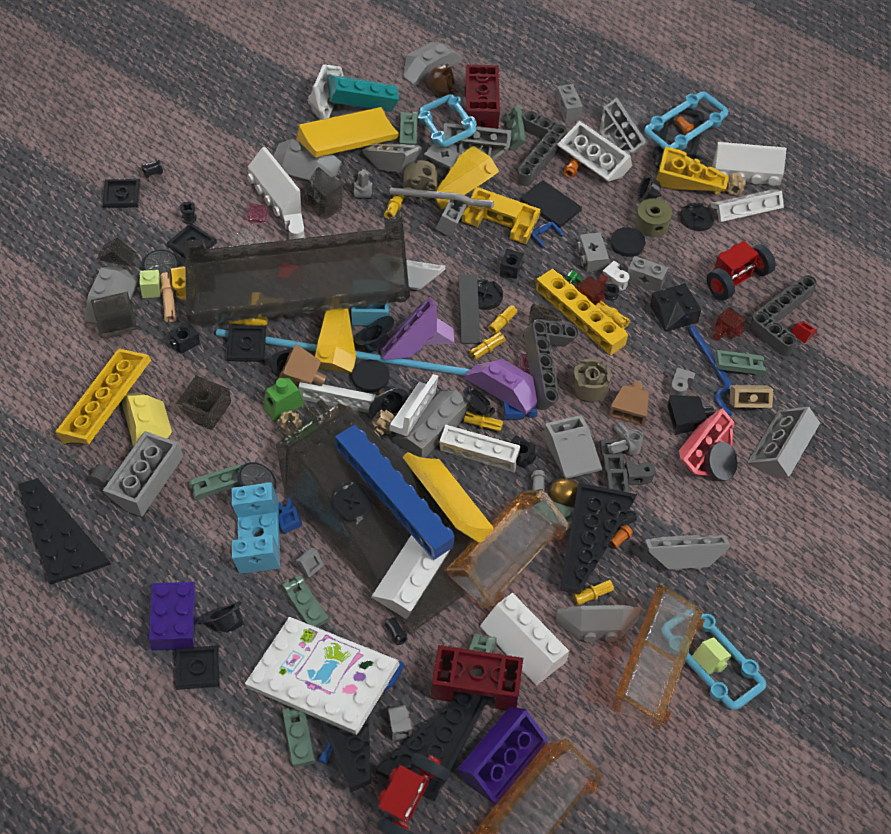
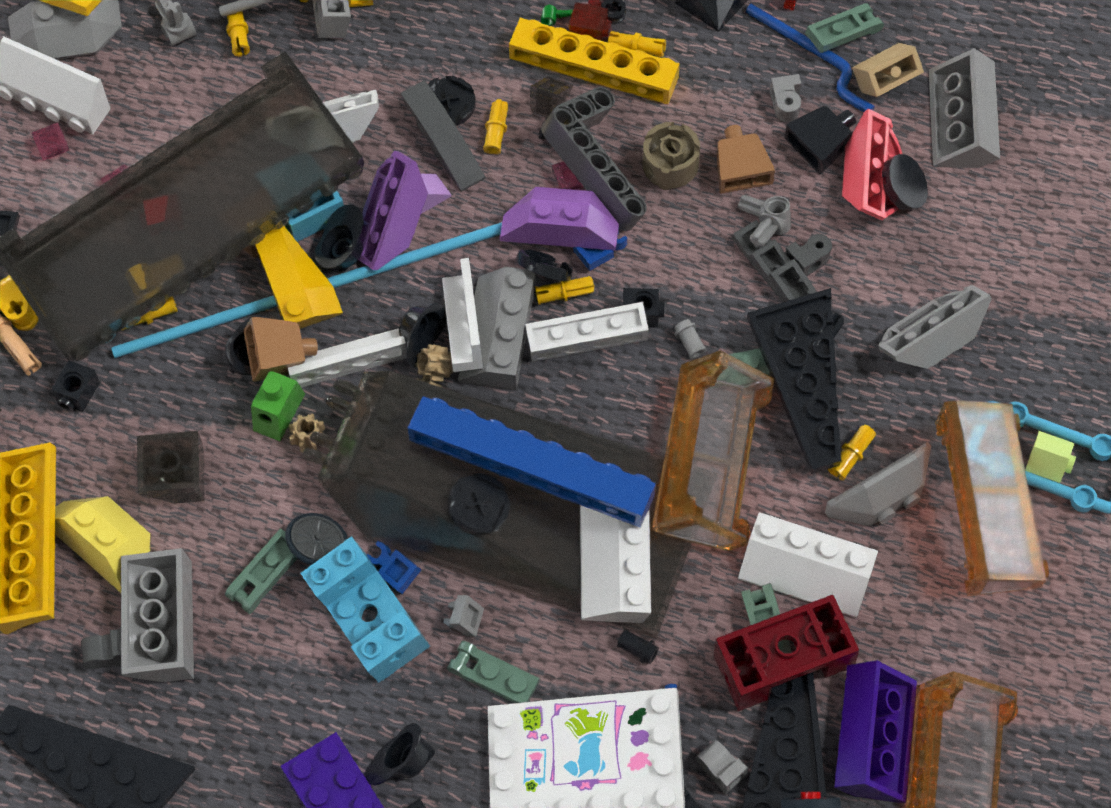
camera: 25 degrees left, 10 degrees up
(246, 343) = (168, 348): black tile -> none
(295, 225) = (121, 134): white leg -> none
(323, 194) = (129, 65): clear smoke slope -> none
(370, 375) = (370, 304): black tile -> none
(450, 496) = (599, 423): yellow arch -> none
(487, 346) = (500, 176): yellow pin -> none
(511, 264) = (457, 29): black brick -> none
(564, 491) = (731, 332): pearl gold hair -> none
(572, 446) = (706, 265): light grey slope -> none
(624, 532) = (842, 351): orange pin -> none

